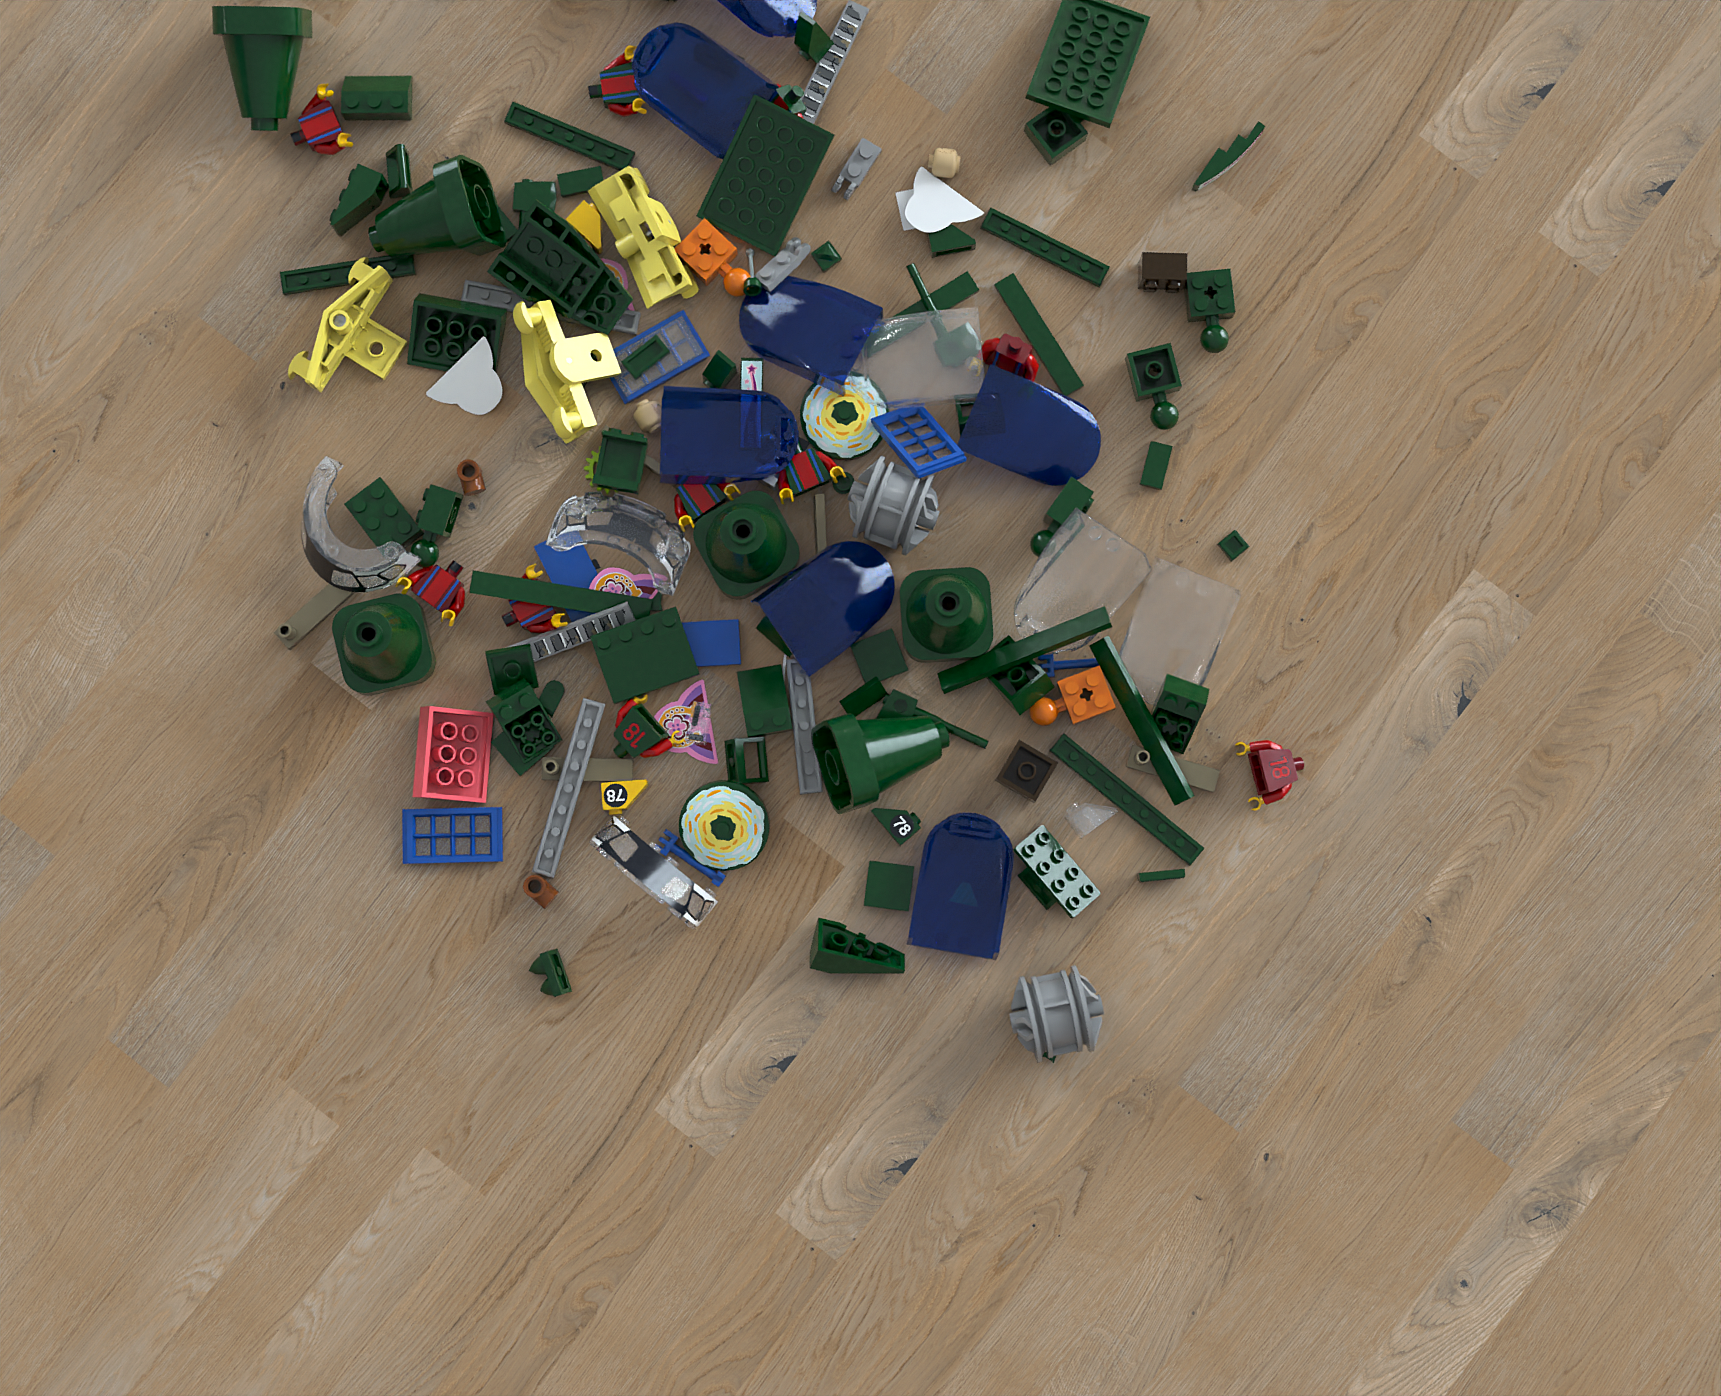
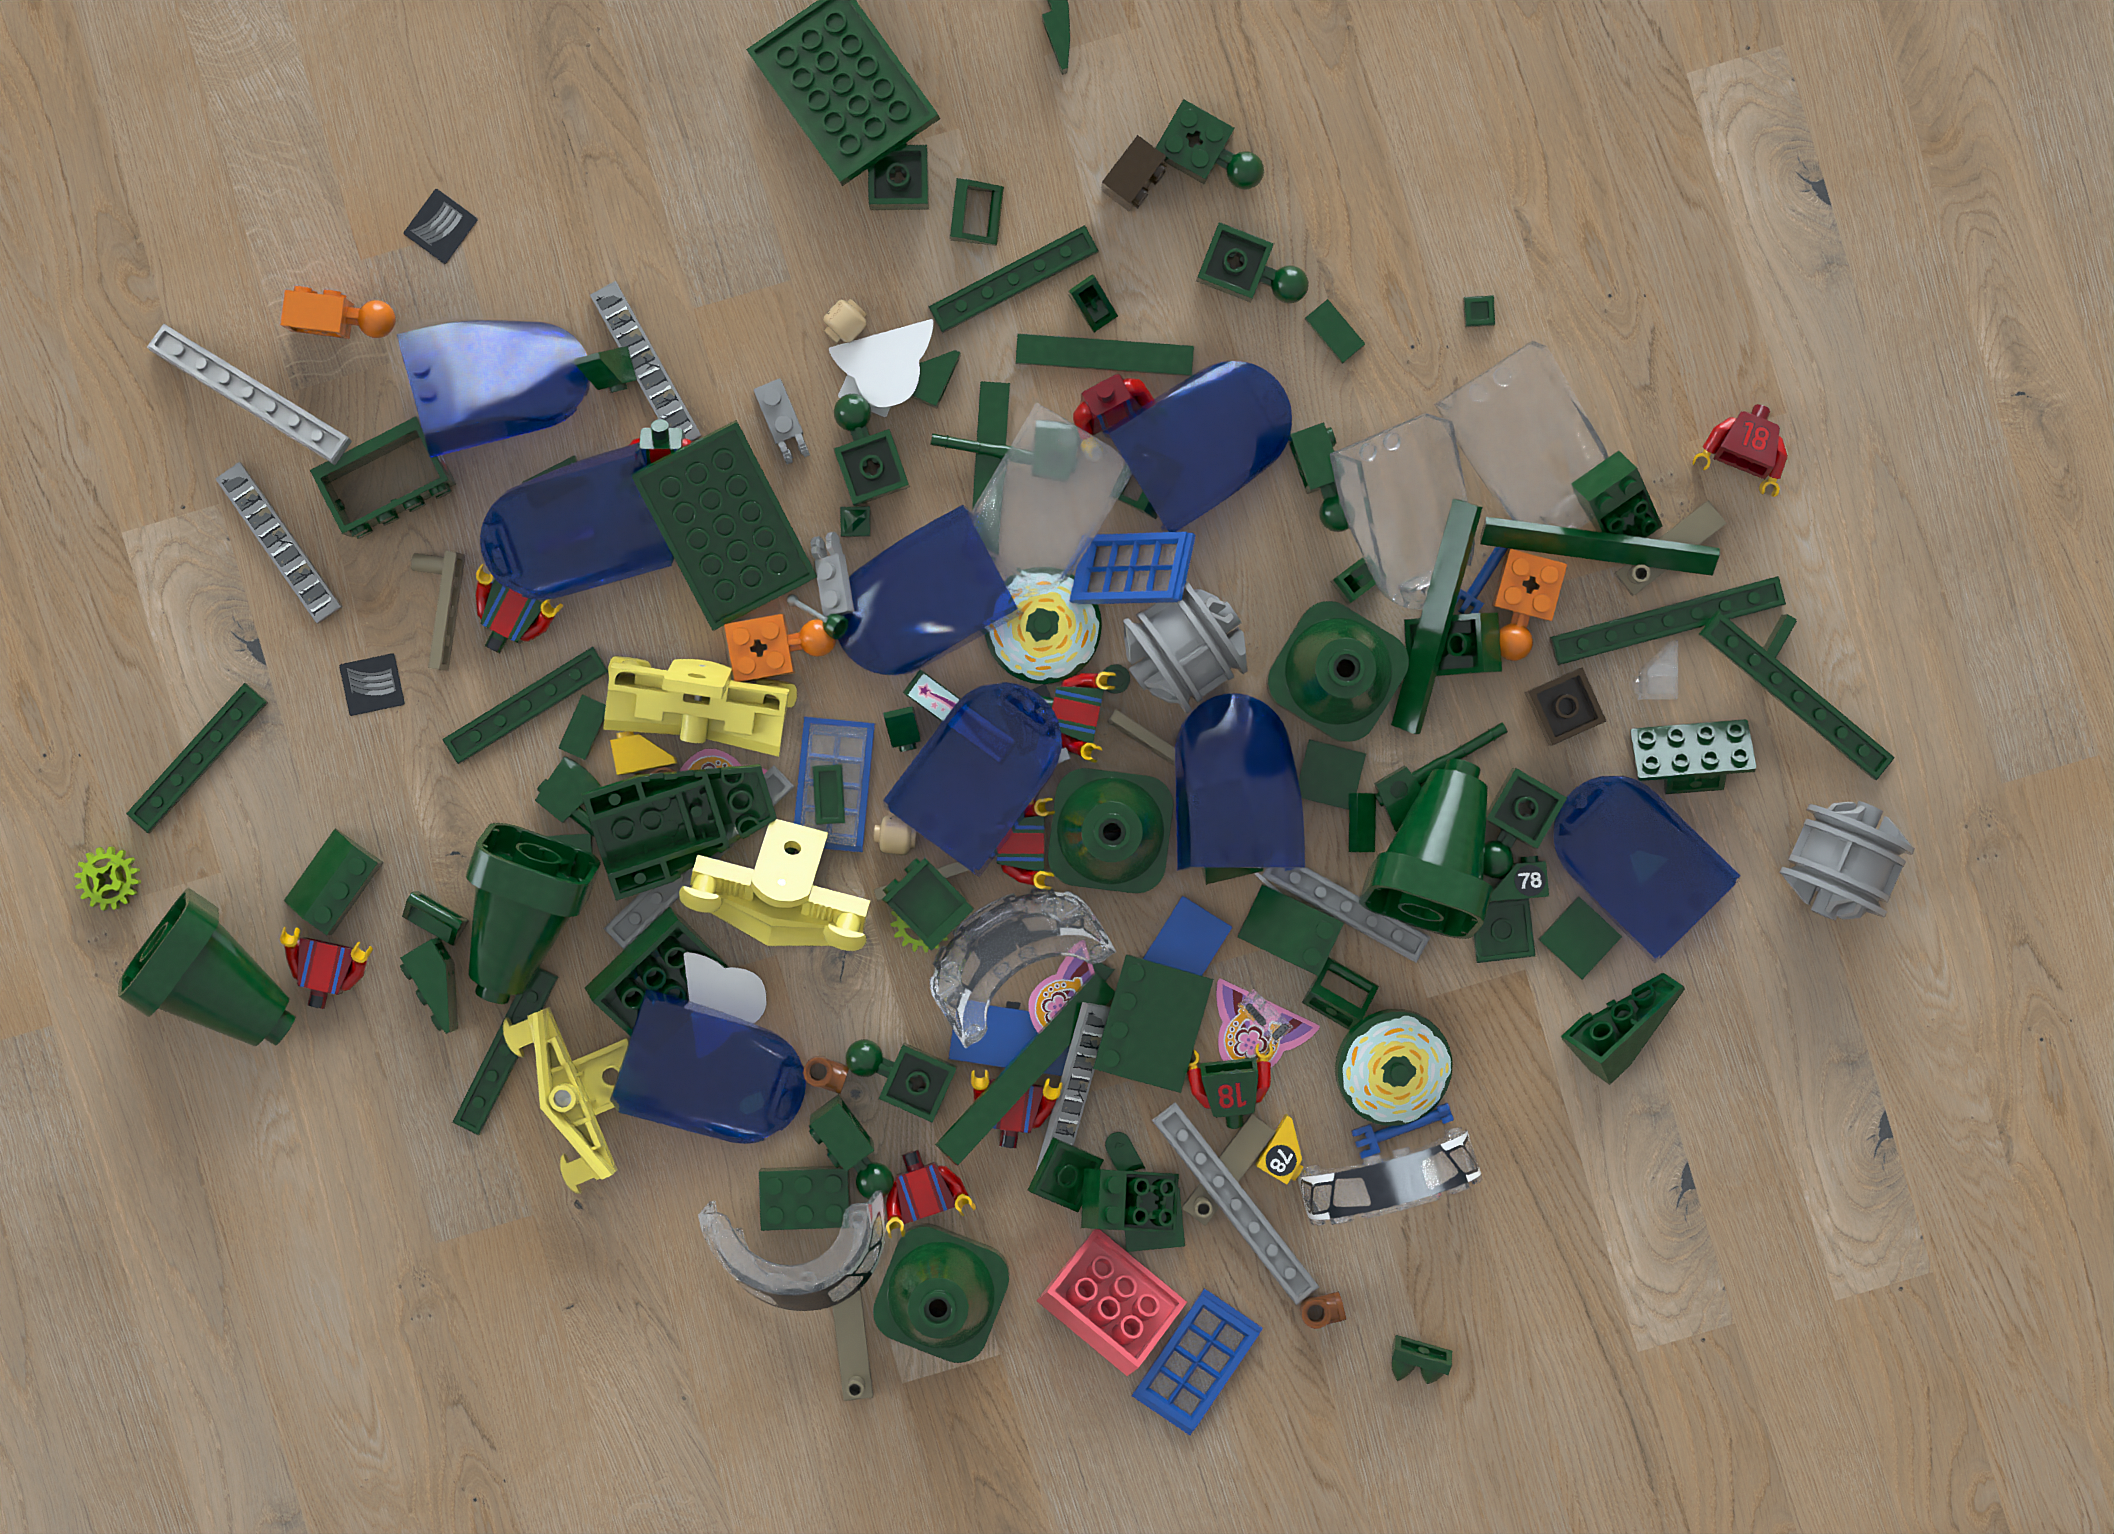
camera: 60 degrees left, 5 degrees up
(420, 404) = (708, 1072): none -> clear blue windscreen
(492, 527) = (866, 1058): none -> dark green brick
(516, 37) = (371, 684): none -> black sticker
(597, 46) = (451, 569): none -> dark tan piece
(859, 834) = (1505, 932): none -> dark green tile
(866, 226) = (853, 414): none -> dark green brick
(934, 804) = (1528, 828): none -> dark green brick
(1008, 585) = (1354, 581): none -> dark green slope
(1064, 183) = (959, 212): none -> dark green tile
(1065, 304) = (1092, 303): none -> dark green slope
(1137, 911) = (1796, 695): none -> dark green tile

